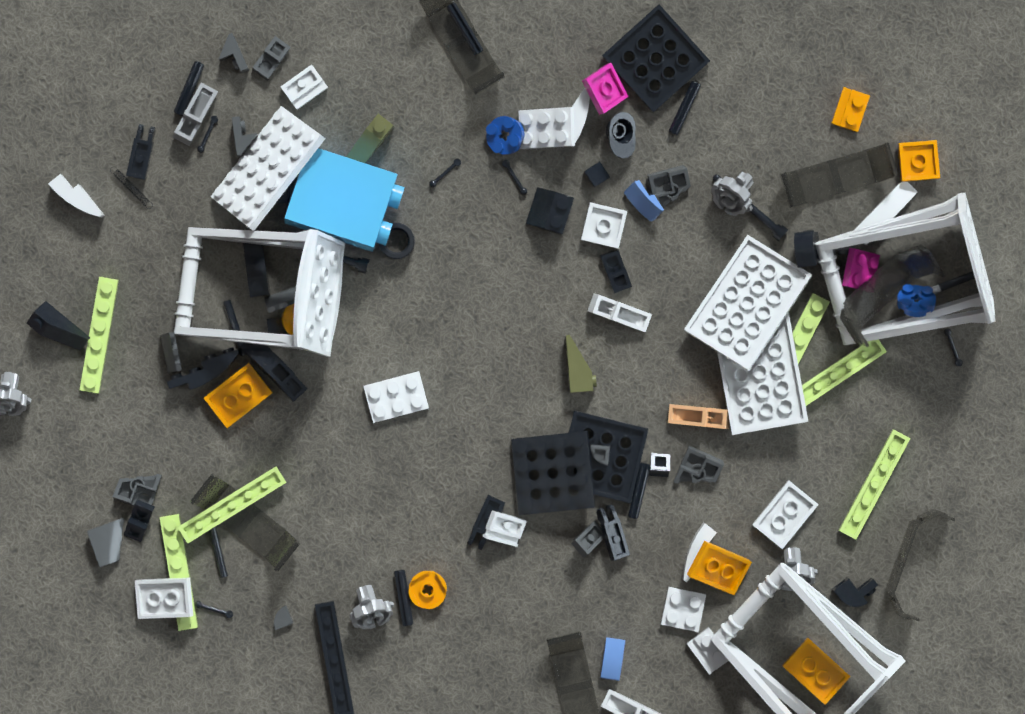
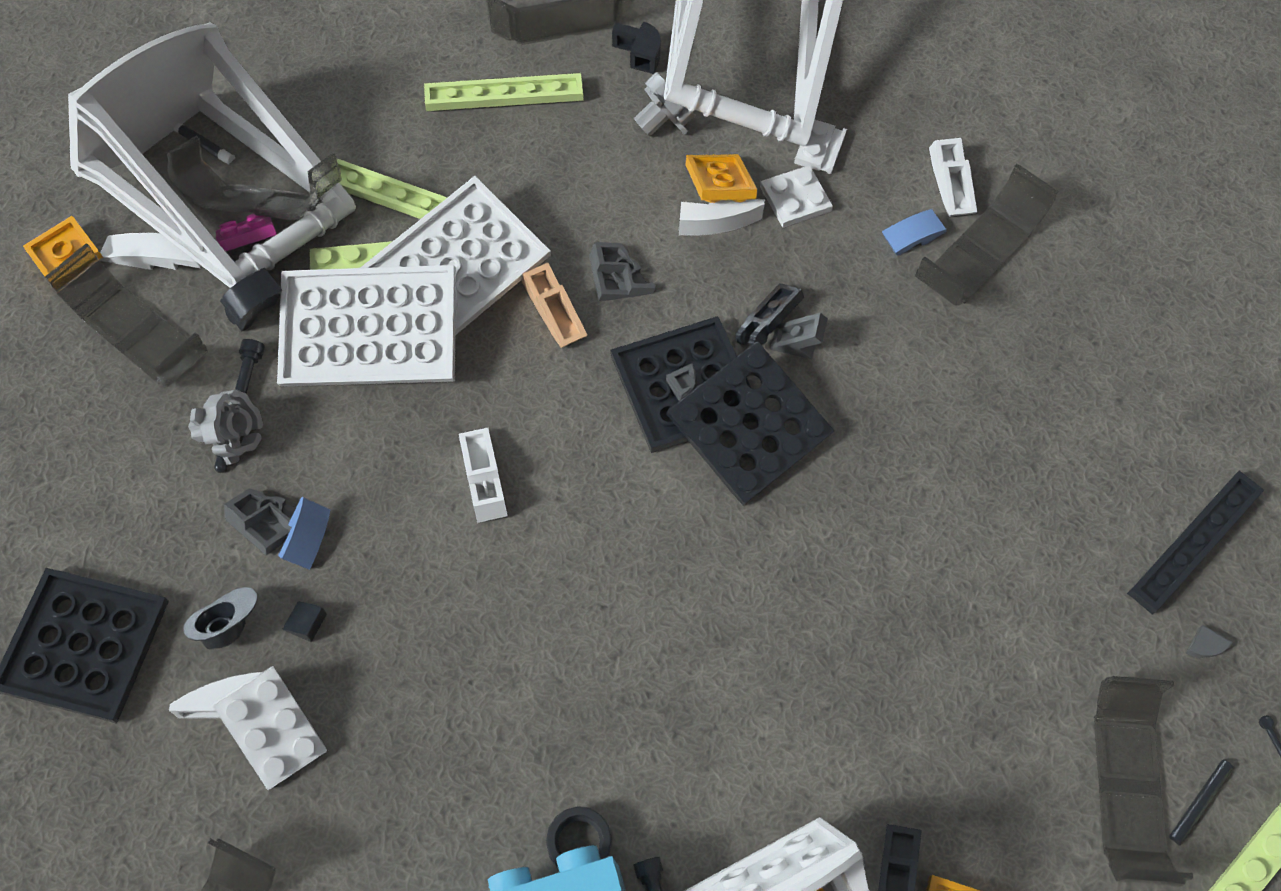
camera: 130 degrees left, 25 degrees down
(231, 504) = (1133, 821): yellowish green plate -> none
(370, 608) = (1101, 533): light grey piece -> none
(396, 397) = (802, 691): white plate -> none
(403, 597) = (1048, 507): black axle -> none
(417, 586) = (1009, 499): light orange plate -> none
(433, 183) = (403, 832): black hinge -> none
(491, 503) = (871, 468): black hinge -> none
(504, 528) = (865, 437): white plate -> none
(506, 164) = (363, 756): black hinge -> none
(514, 140) = (317, 804): blue plate -> none
(550, 210) = (394, 647): black slope -> none
(578, 370) = (597, 472): olive slope -> none
(604, 225) = (372, 565): white plate -> none
(605, 88) = (162, 681): dark pink plate -> none
(616, 271) = (428, 514): black slope -> none
(639, 490) = (722, 310): black axle -> none
(660, 465) = (645, 316): slope -> none
(684, 108) = (138, 563): black axle -> none
(785, 514) = (605, 156): white plate -> none
(816, 671) = (755, 36): light orange plate -> none
(850, 109) = (33, 364): light orange plate -> none
(909, 293) = (248, 157): blue plate -> none
(958, 362) = (301, 92): black hinge -> none

